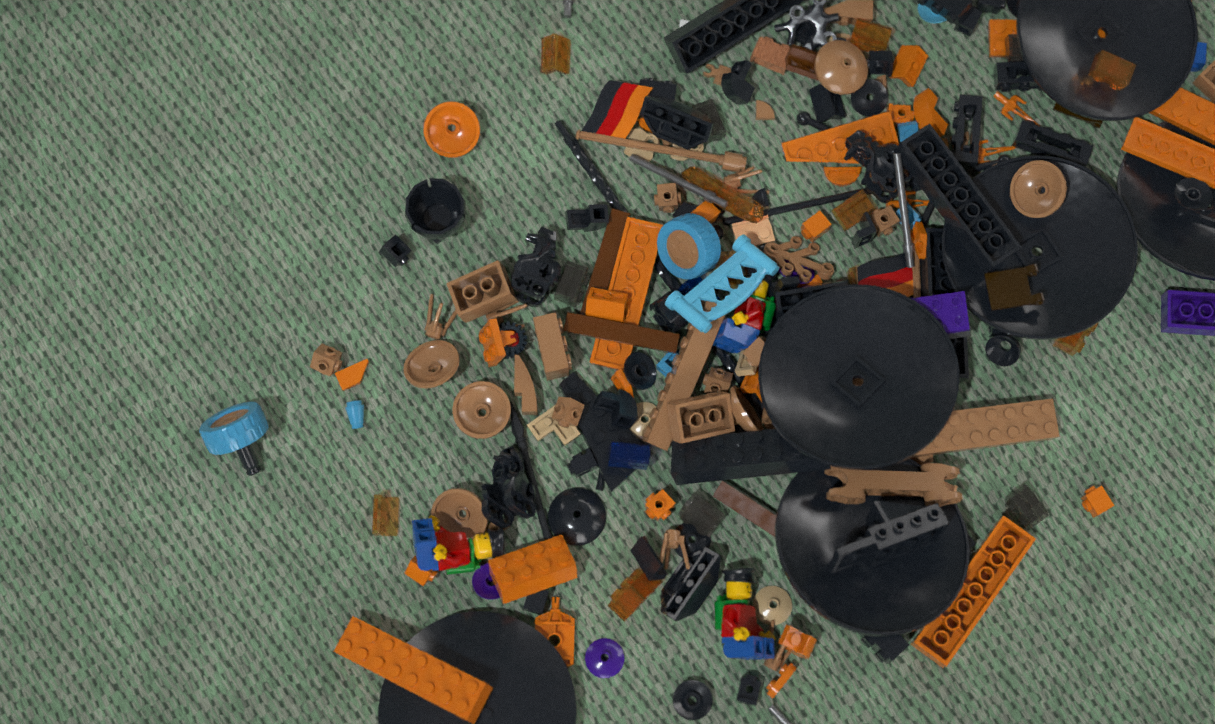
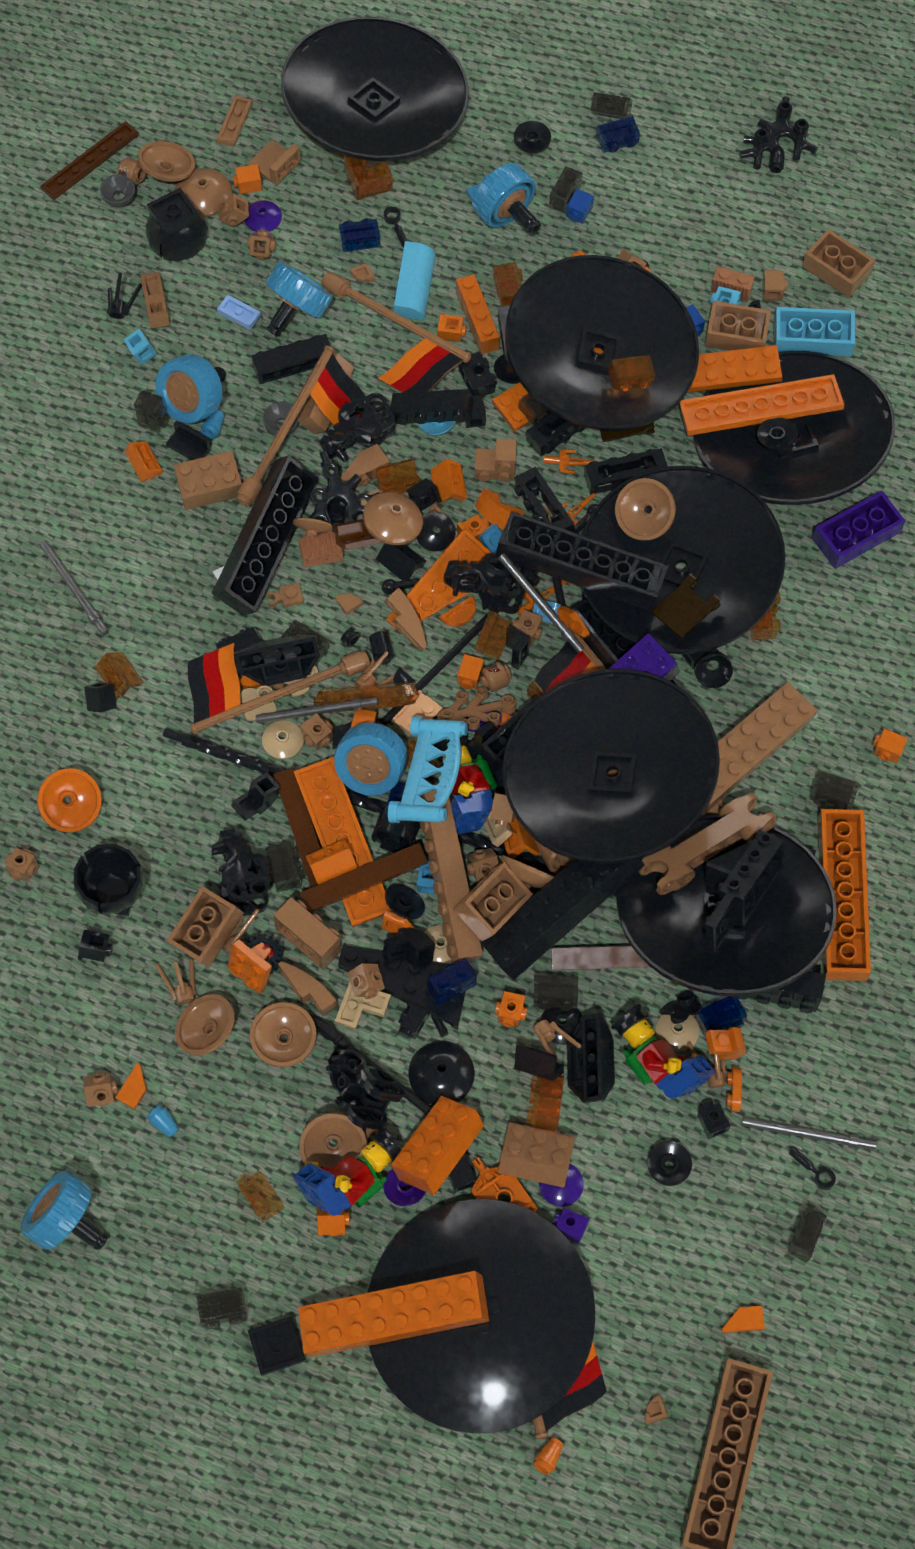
camera: 35 degrees left, 10 degrees down
(303, 577) = (222, 1308): none -> clear smoke brick
(321, 630) = (276, 1346): none -> black plate
(386, 155) = (21, 864): none -> medium nougat brick
(529, 64) = (100, 697): none -> black panel
(588, 693) = (571, 1225): none -> dark purple brick
(599, 626) = (536, 1154): none -> medium nougat brick
(637, 193) = (285, 747): none -> tan dish
(734, 83) = (306, 594): black brick -> none
(745, 139) = (350, 637): none -> black bush
(763, 161) = (379, 644): none -> black brick
(774, 34) = (312, 526): none -> medium nougat dish
(784, 593) = (685, 1005): none -> black plate
(795, 153) = (407, 619): none -> medium nougat slope
(806, 618) = (721, 1015): none -> clear blue brick
(831, 243) = (495, 676): none -> medium nougat head
(954, 73) = (496, 463): none -> medium nougat brick

